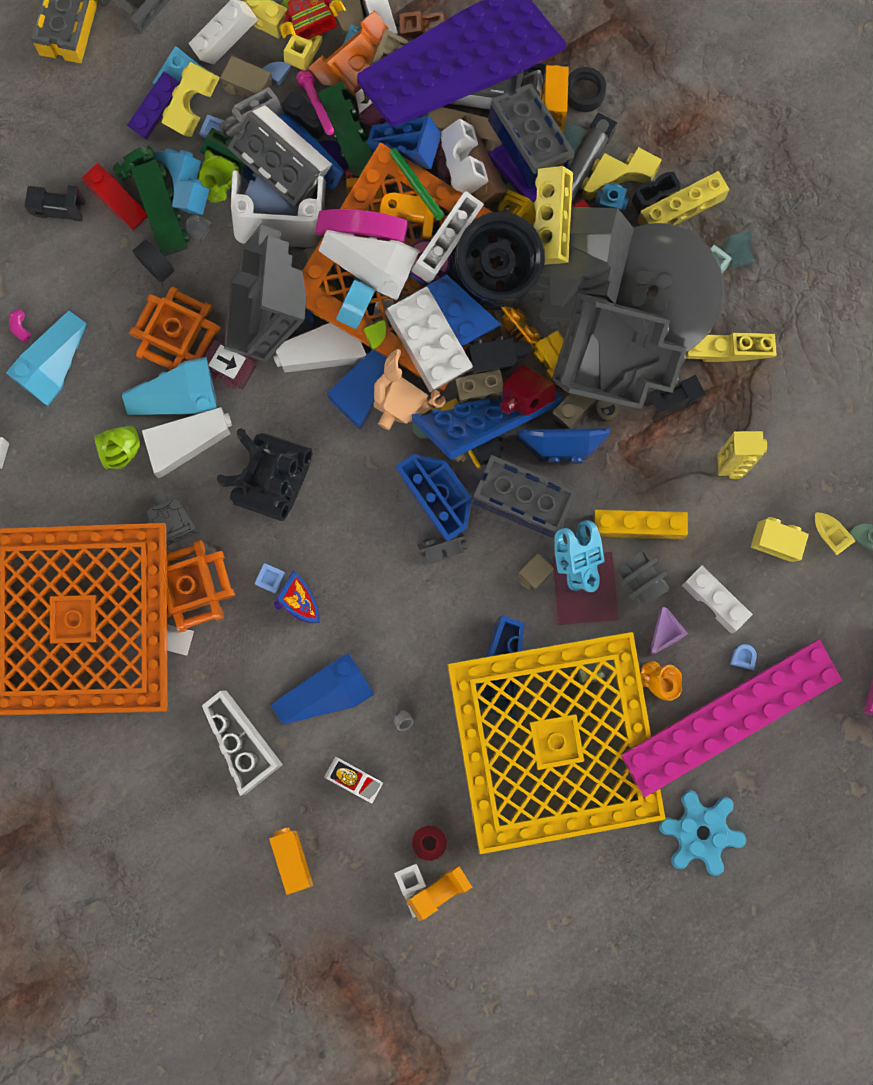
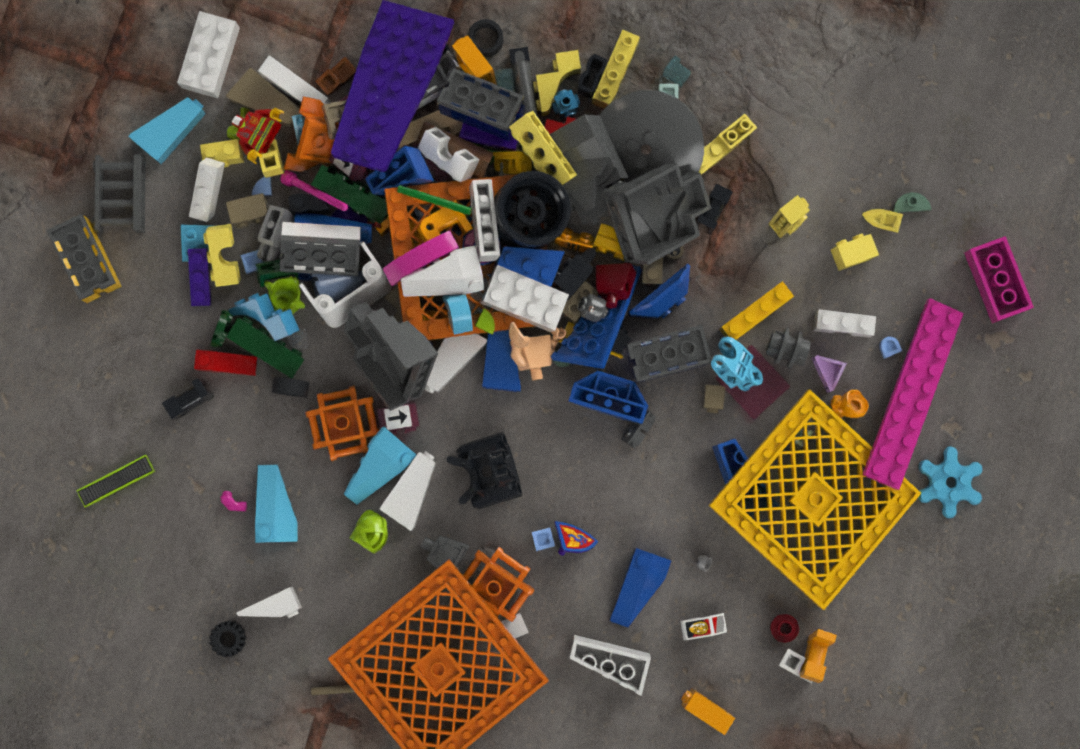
camera: 40 degrees left, 5 degrees up
(486, 397) = (592, 308): none -> dark grey head

